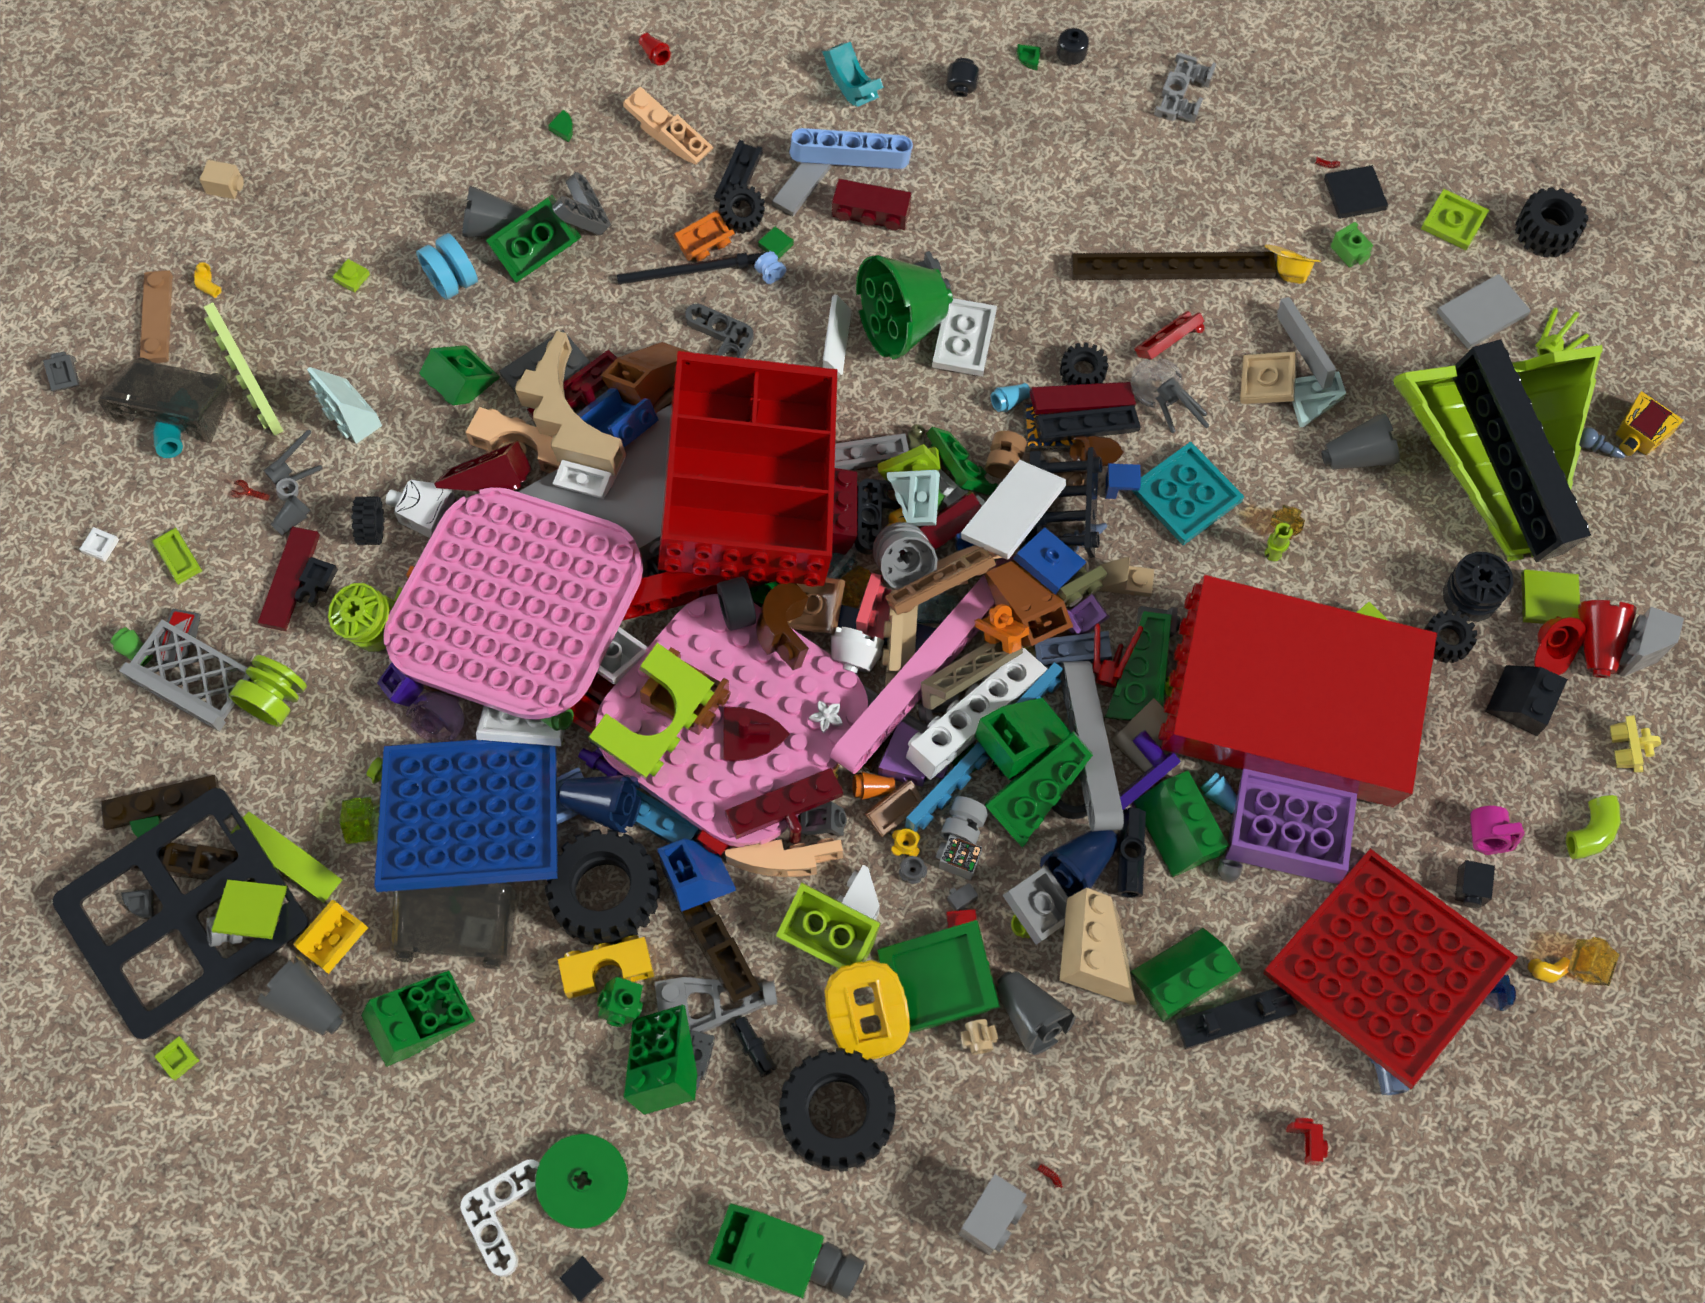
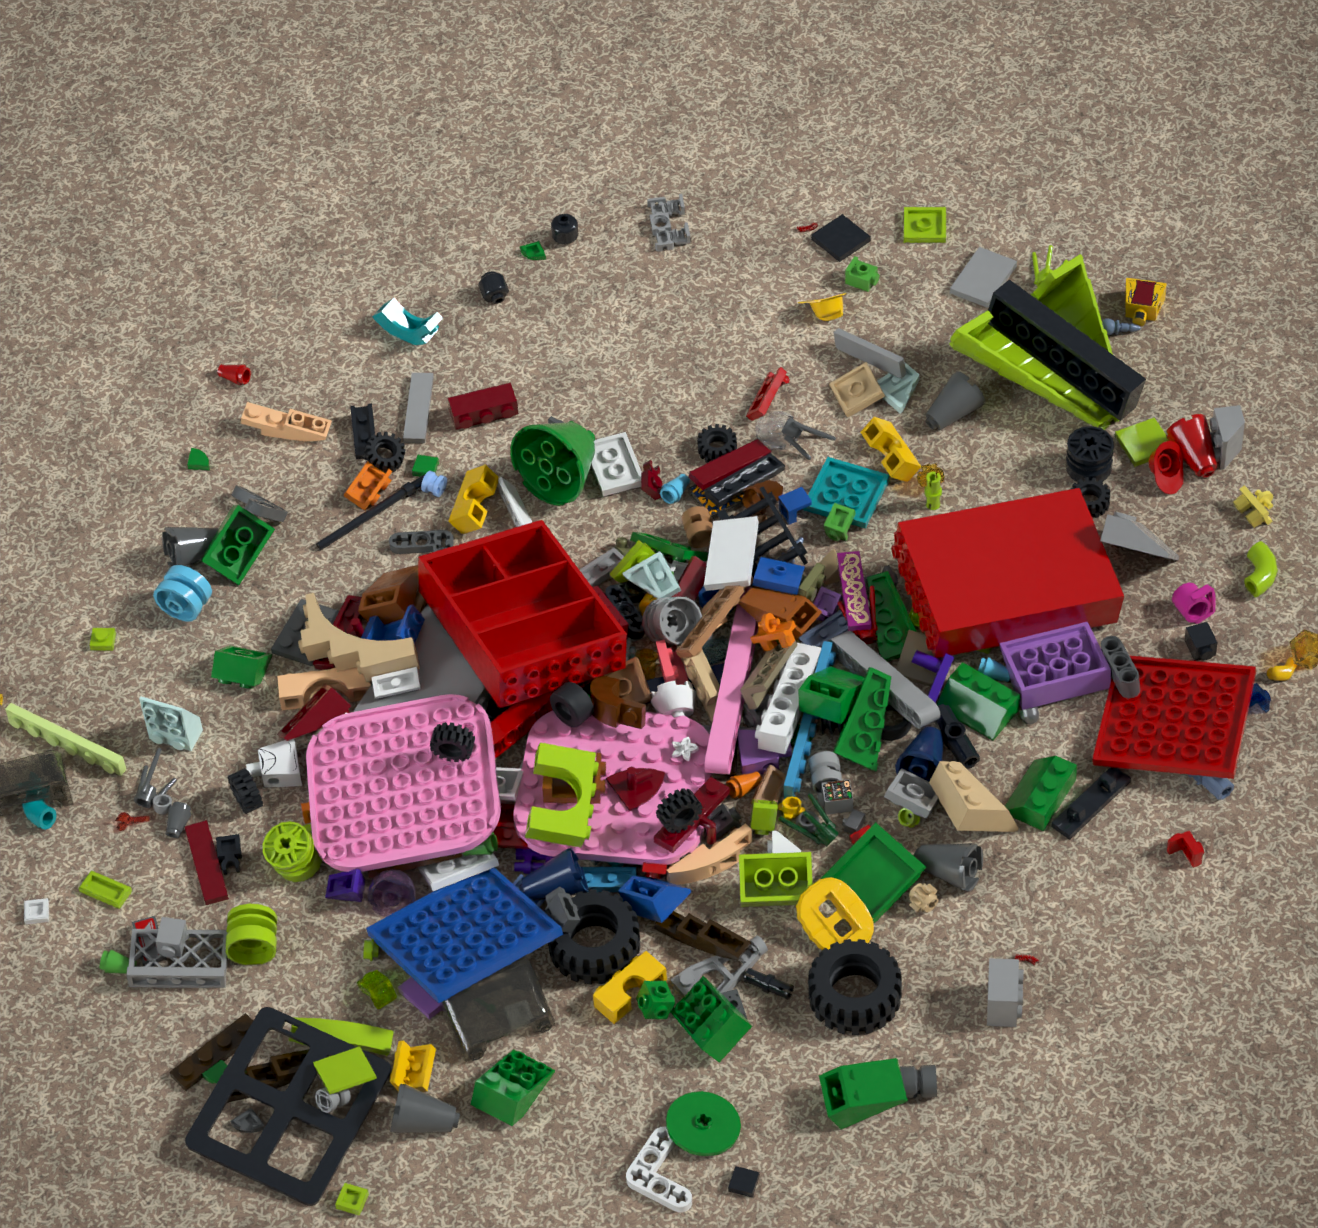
camera: 25 degrees left, 15 degrees down
(185, 653) = (171, 937): none -> light grey brick
(575, 847) = (562, 909): none -> dark grey piece
(576, 588) = (452, 742): none -> black tyre
(759, 801) = (679, 810): none -> black tyre
(809, 292) = (467, 512): none -> yellow arch
(850, 148) = (441, 374): light blue beam -> none
(866, 839) = (763, 816): none -> lime slope
(920, 893) = (824, 832): none -> dark green plant
(988, 375) = (650, 481): none -> dark red plate
(1120, 620) = (853, 591): none -> magenta tile
(1156, 526) = (839, 522): none -> bright green bracket
(1173, 265) = (738, 347): dark brown plate -> none
(1264, 449) = (898, 458): none -> yellow arch
(1358, 883) = (1122, 668): none -> dark grey beam
(1470, 724) = (1126, 532): none -> light grey slope
(1526, 697) = (1166, 510): black slope -> none
(1546, 237) = (995, 195): black tyre -> none

